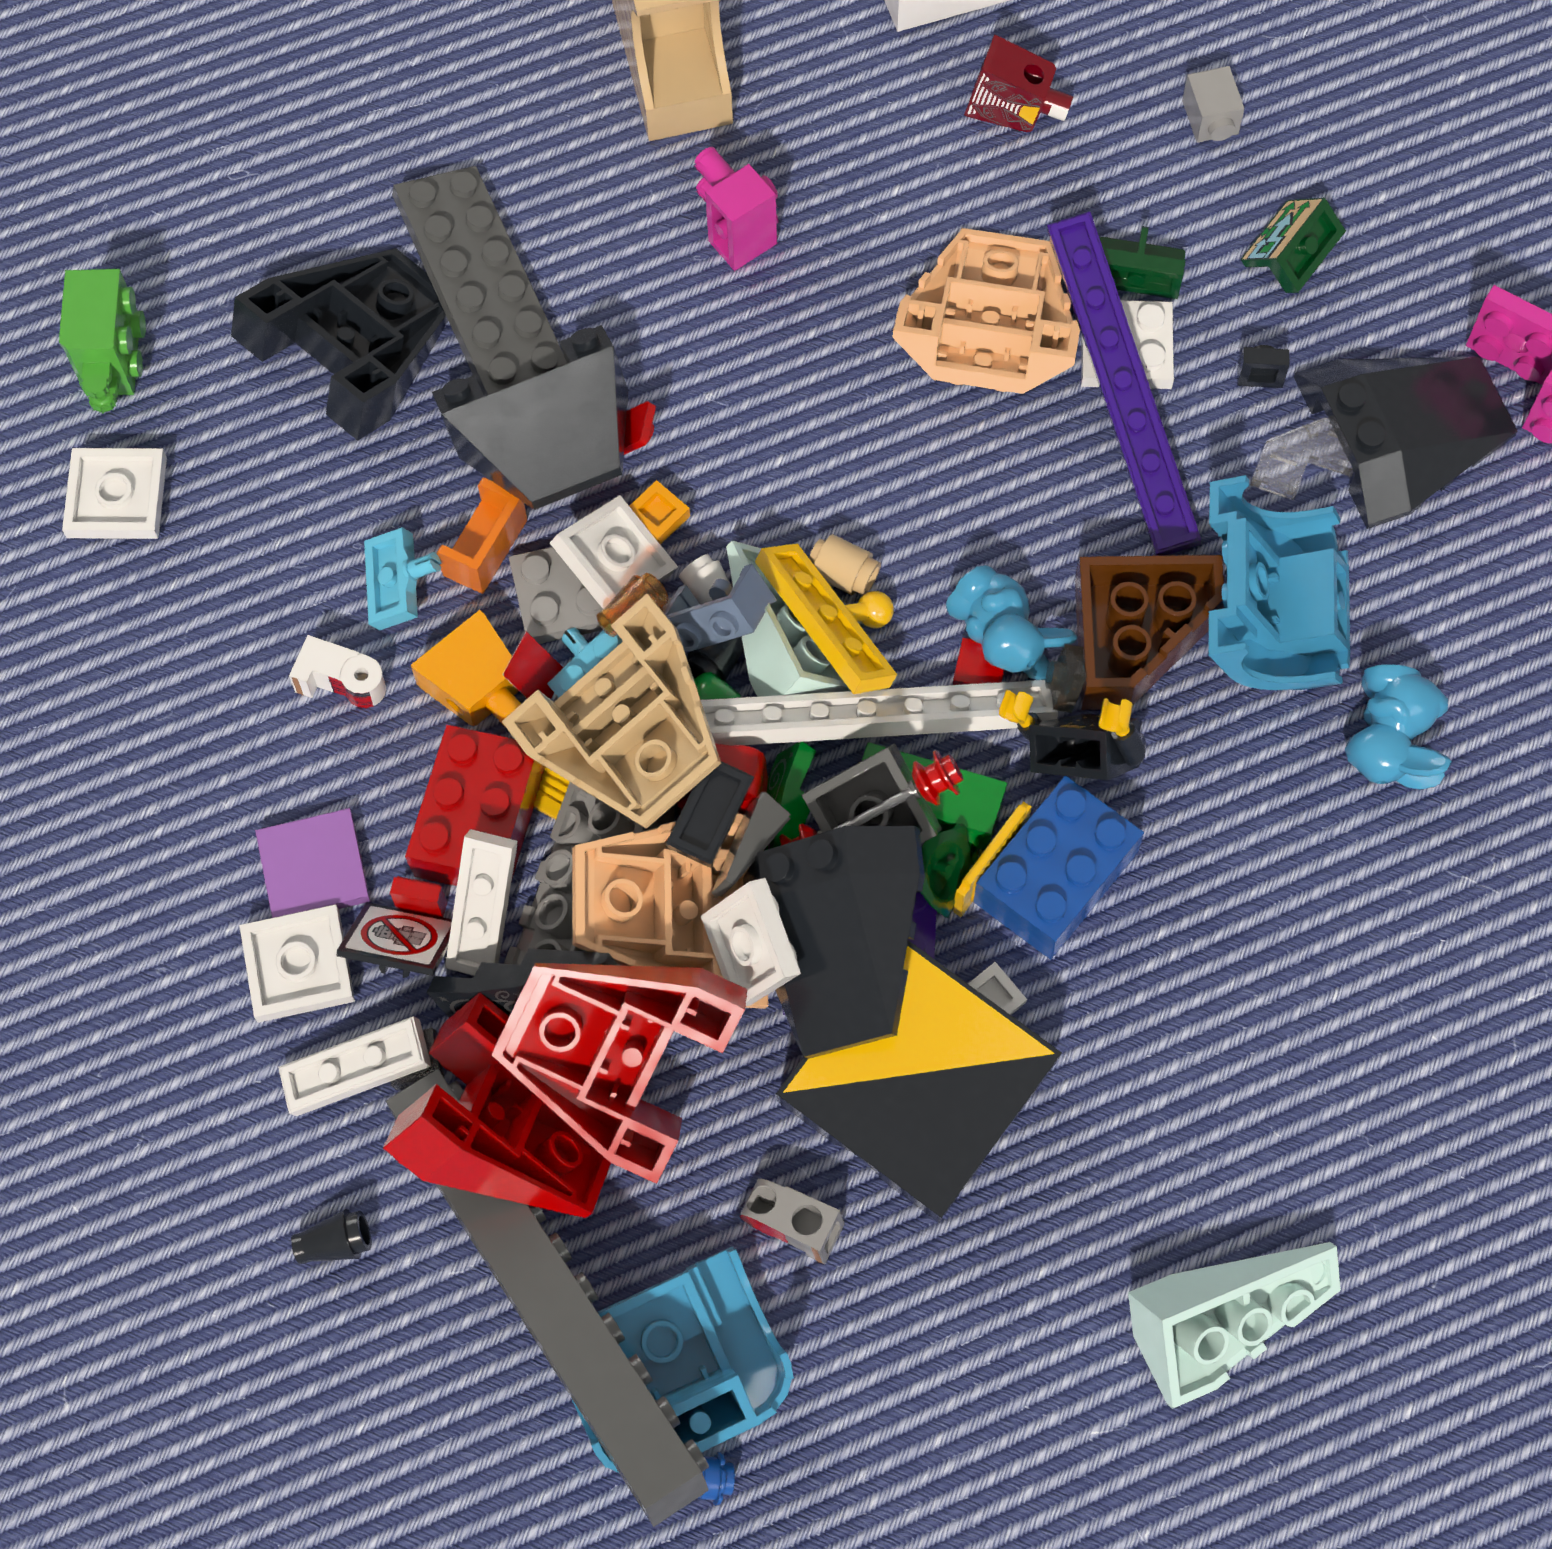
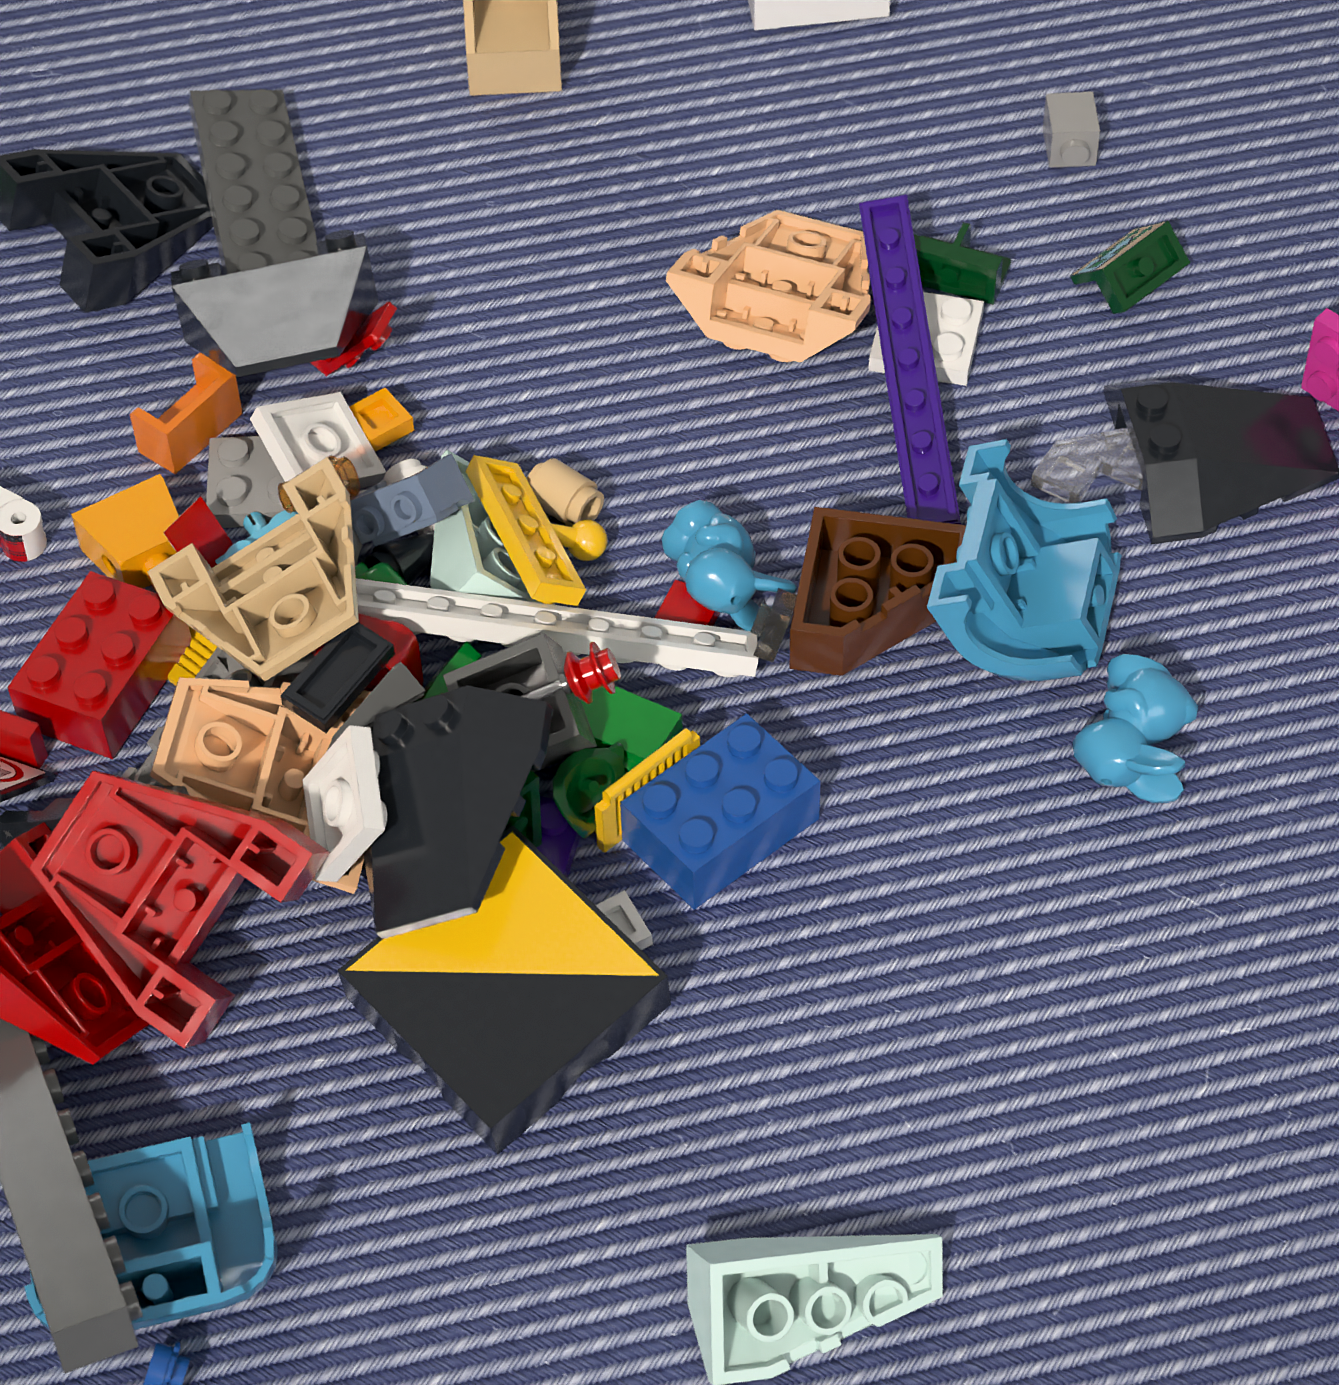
camera: 10 degrees right, 15 degrees down
(393, 577) = (80, 439): medium azure plate -> none
(480, 901) = (75, 731): white plate -> none
(738, 208) = (538, 154): dark pink brick -> none
(793, 1218) = (333, 1118): light grey leg -> none
(1015, 88) = (859, 85): dark red torso -> none
(1081, 743) = (773, 687): black torso -> none
(1263, 367) = (1067, 372): black plate -> none

